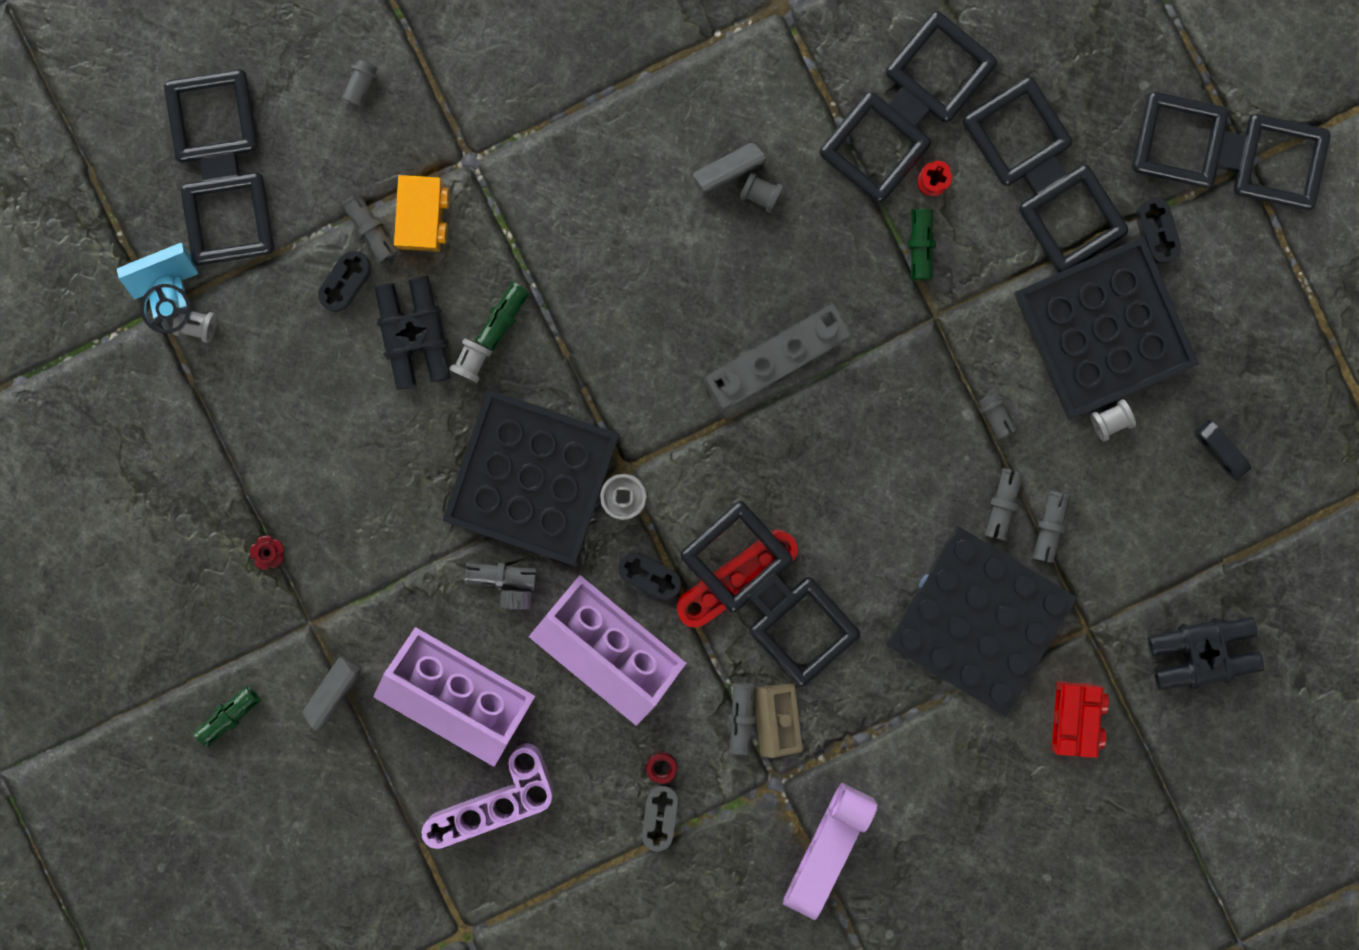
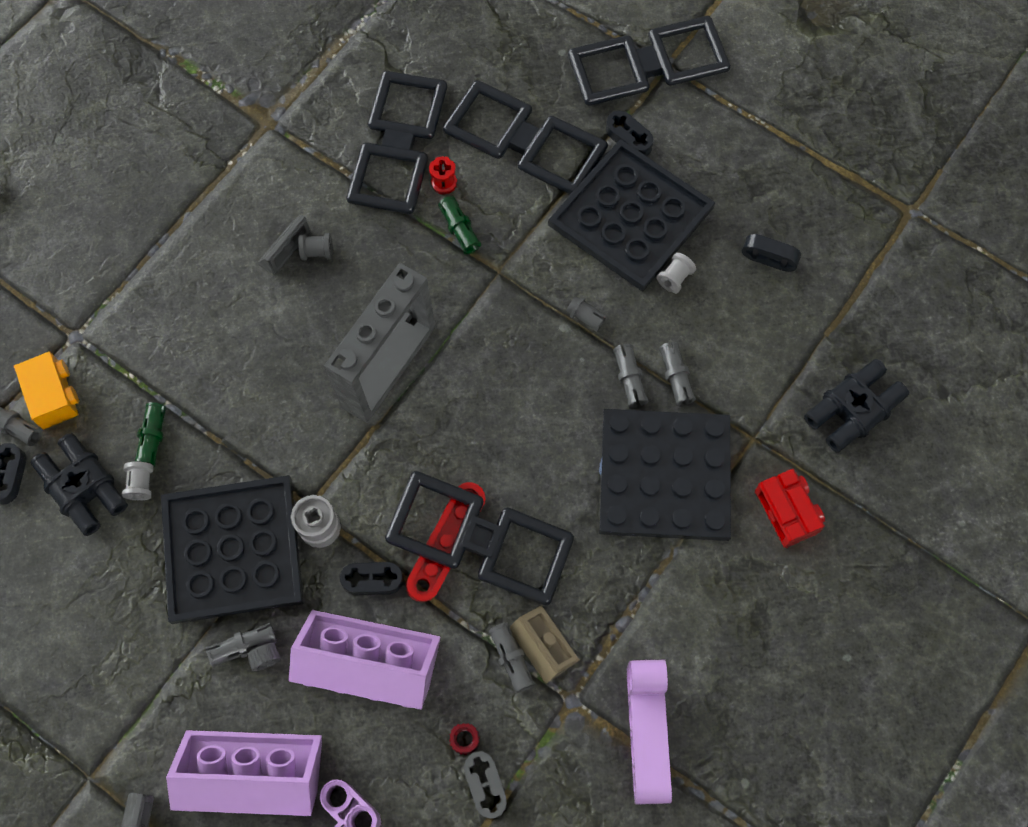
camera: 30 degrees left, 20 degrees down
(276, 552) = (31, 735): dark red plate -> none

